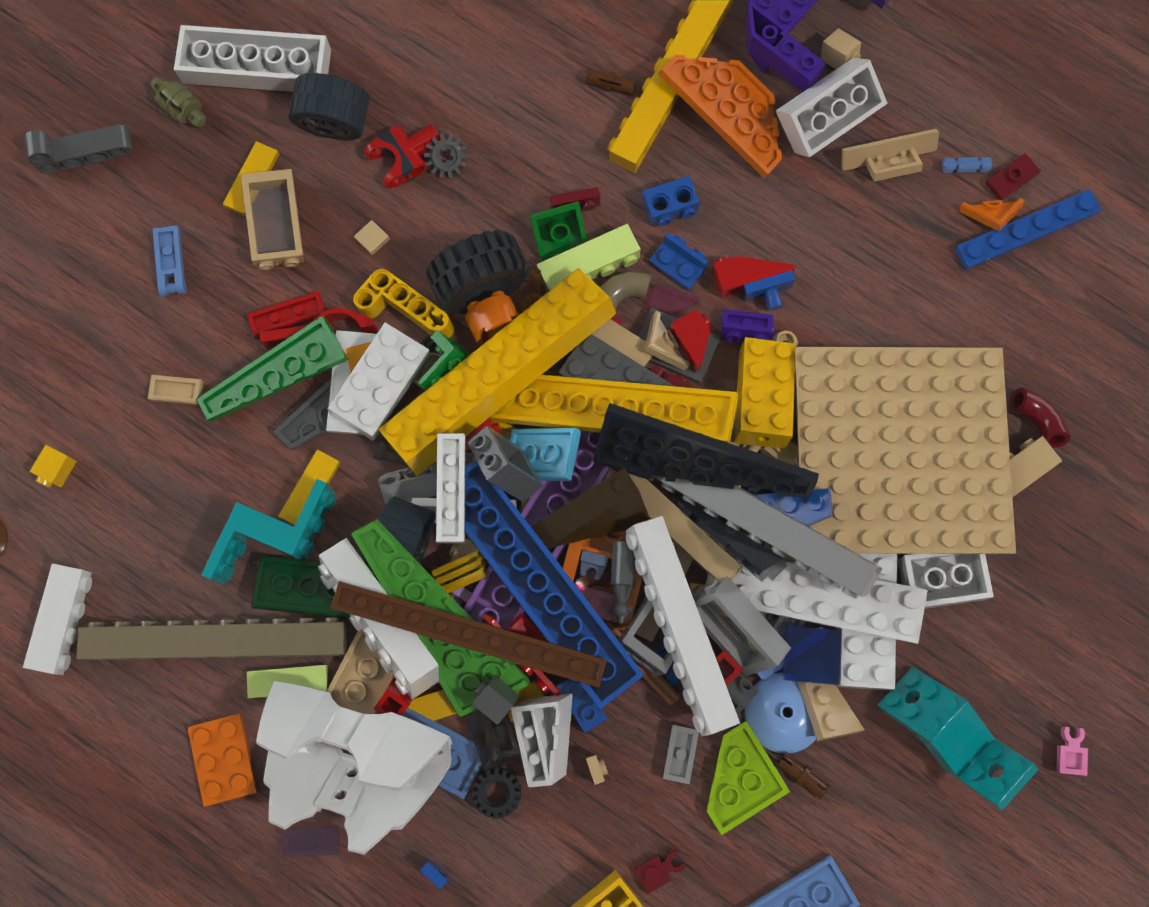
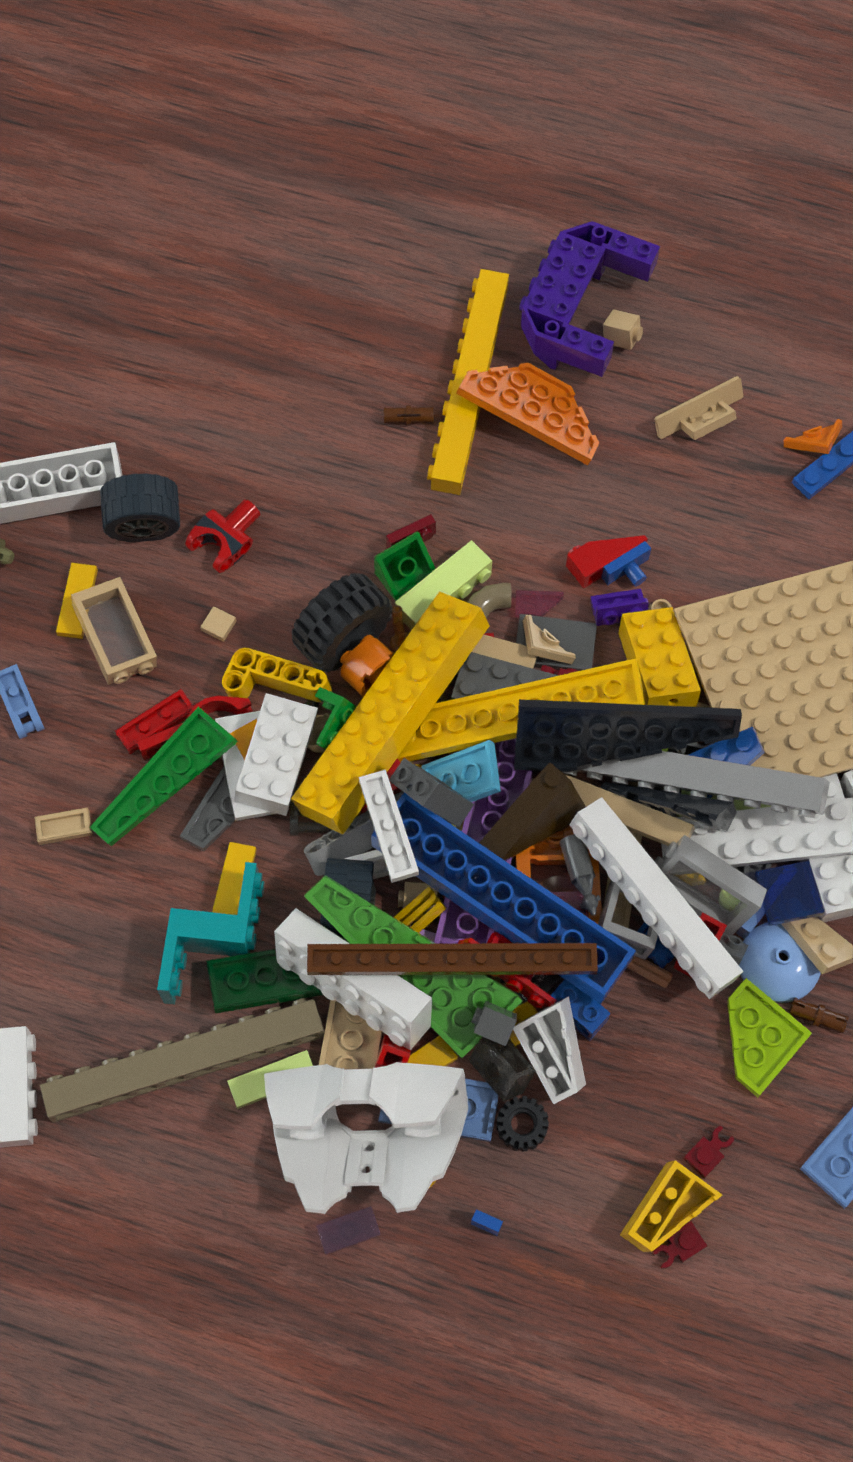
camera: 20 degrees left, 10 degrees down
(222, 760) = (229, 1177): orange plate -> none
(456, 152) = (277, 520): dark grey gear -> none
(594, 561) = (546, 868): sand blue tile -> none
(597, 769) = (614, 1069): tan plate -> none
(667, 196) = (501, 506): blue brick -> none
(679, 261) = (532, 564): blue bracket -> none
(680, 754) = (692, 1030): light grey plate -> none
(692, 336) = (570, 628): red slope -> none
(831, 106) = (631, 381): white brick -> none
(966, 164) = (776, 402): medium blue axle -> none
(1013, 177) = (823, 402): dark red plate -> none

